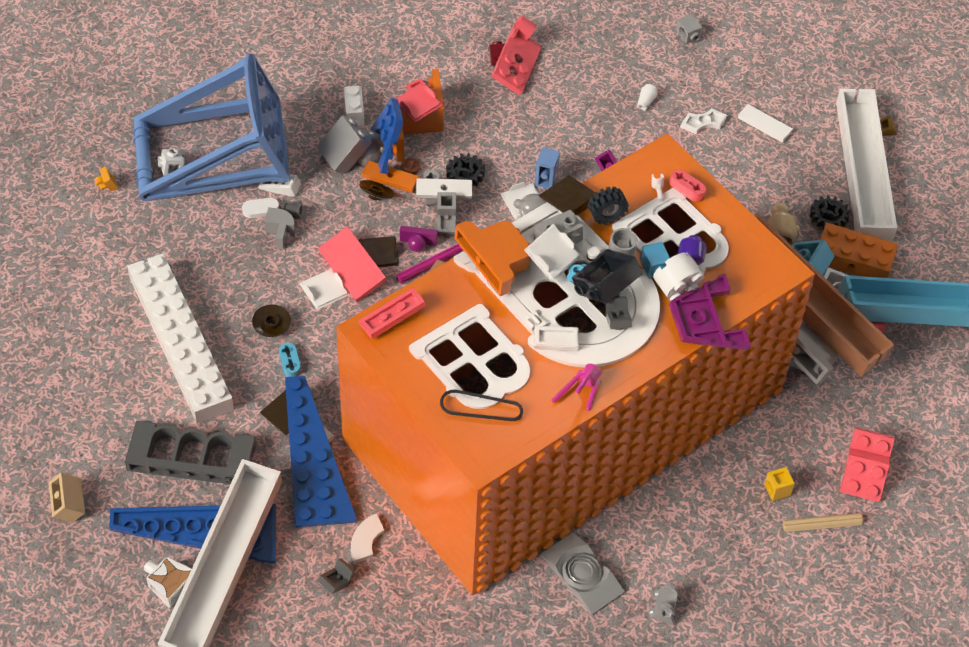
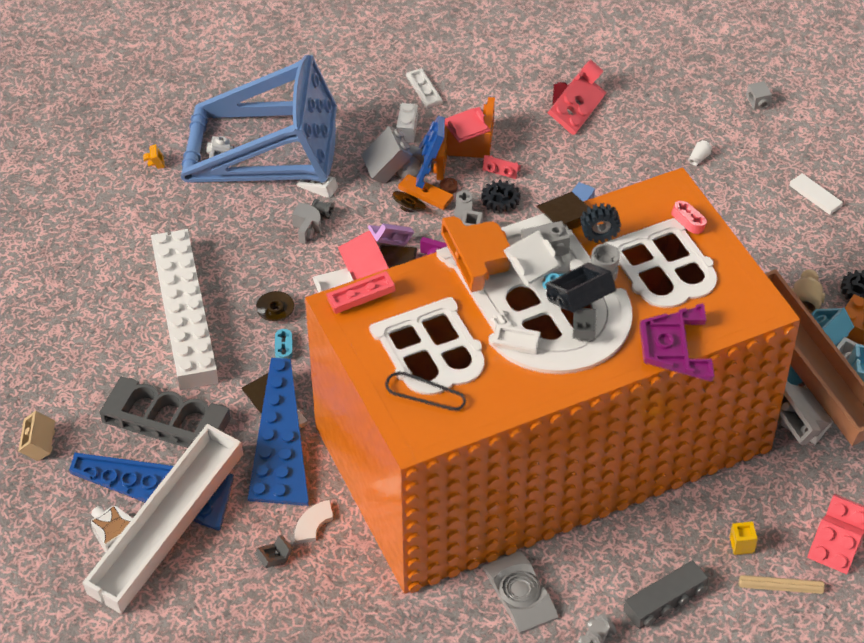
camera: 15 degrees right, 5 degrees down
(258, 207) = (288, 203): white tile -> none
(360, 65) = (424, 88): none -> white tile
(368, 227) = (391, 234): none -> lavender panel
(430, 187) = (455, 205): white tile -> none
(457, 139) = (501, 166): none -> coral hinge
(588, 377) = (538, 380): dark pink plant -> none
(653, 257) = (635, 280): dark azure brick -> none
(658, 185) = (659, 212): white hand -> none
(678, 276) = (654, 297): white brick -> none
(695, 247) = (675, 278): dark purple head -> none
(697, 122) = (744, 184): white tile -> none
(720, 552) = (666, 594): none -> dark grey brick

